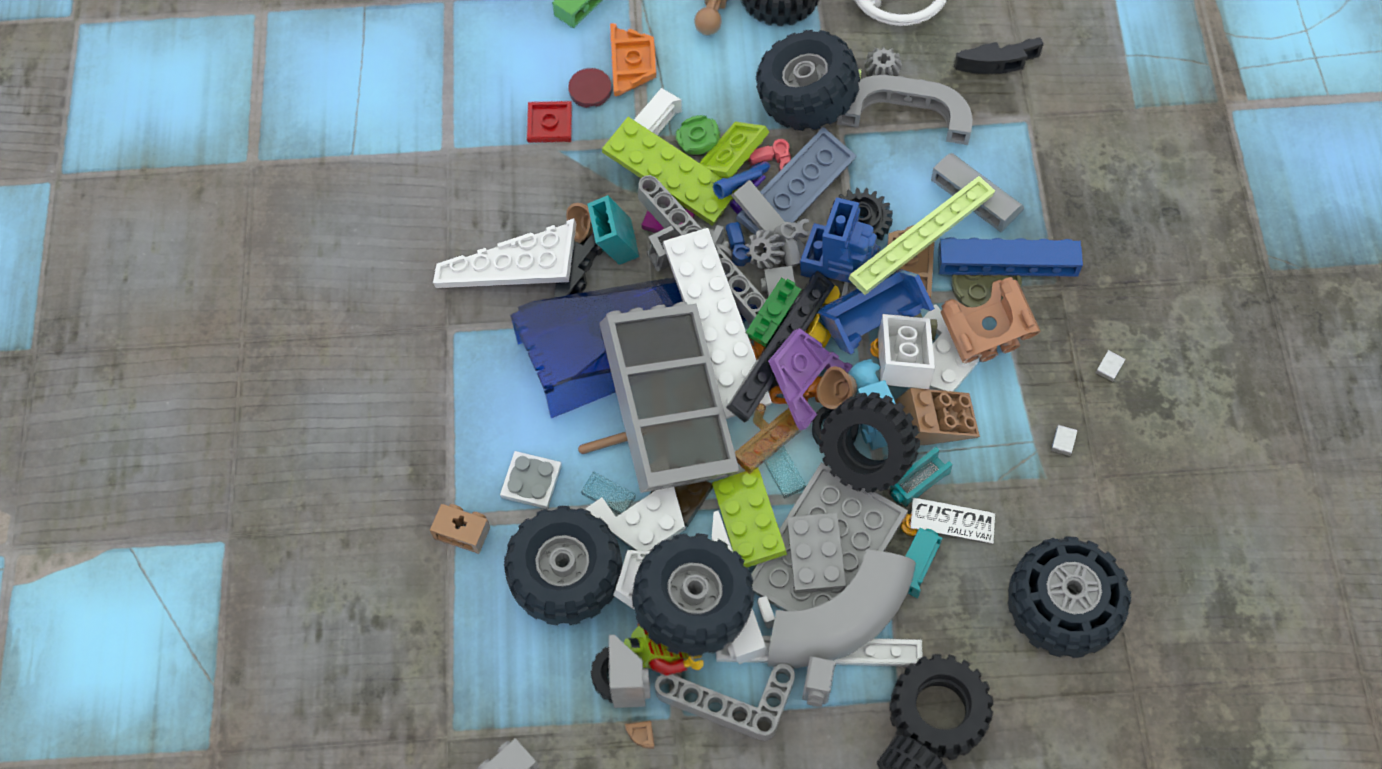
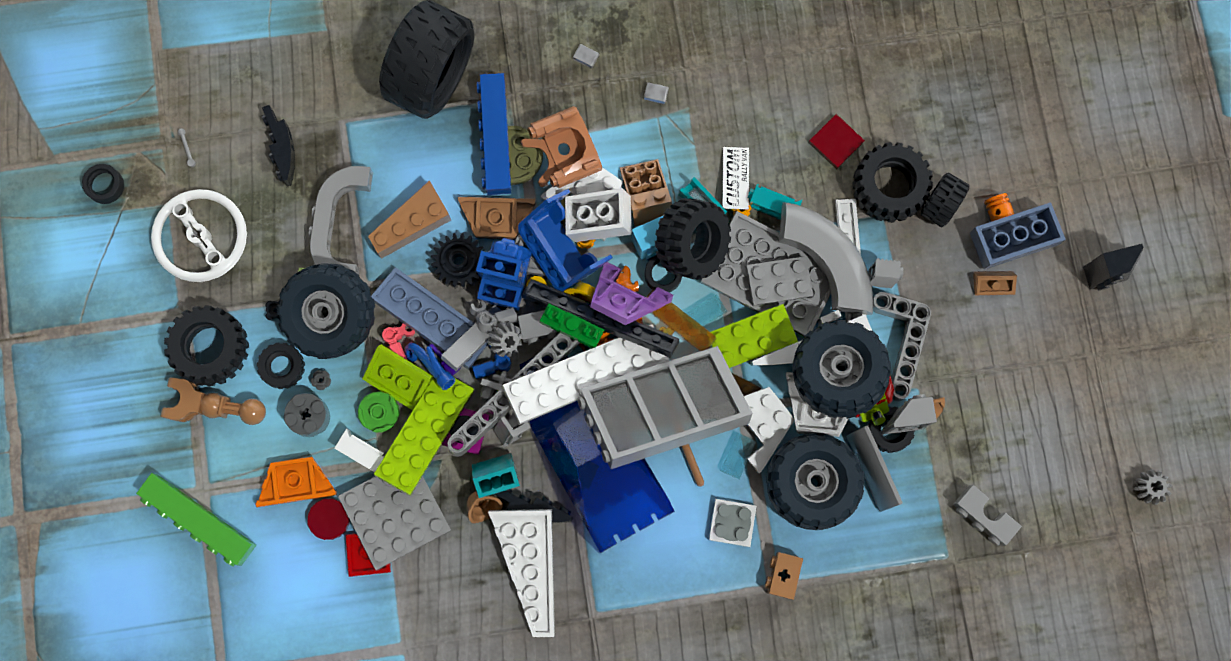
camera: 100 degrees left, 15 degrees up
(570, 644) = (874, 469): none -> light grey slope
(574, 143) = (391, 520): none -> light grey plate
(699, 69) = (304, 404): none -> dark grey brick
(737, 91) = (326, 380): none -> dark grey plate
(749, 36) = (265, 361): none -> black tyre
(835, 387) = (637, 270): medium nougat helmet -> none
(865, 373) = (621, 249): medium azure hair -> none
(882, 62) = (288, 242): light grey gear -> none
(908, 172) = (411, 221): none -> medium nougat wedge
(921, 235) = (487, 203): yellowish green plate -> none
(954, 174) = (425, 161): light grey brick -> none
(1000, 650) = (836, 141): none -> dark red tile
(1069, 597) = (796, 88): black wheel -> none
(1093, 174) = (426, 59): none -> black tyre

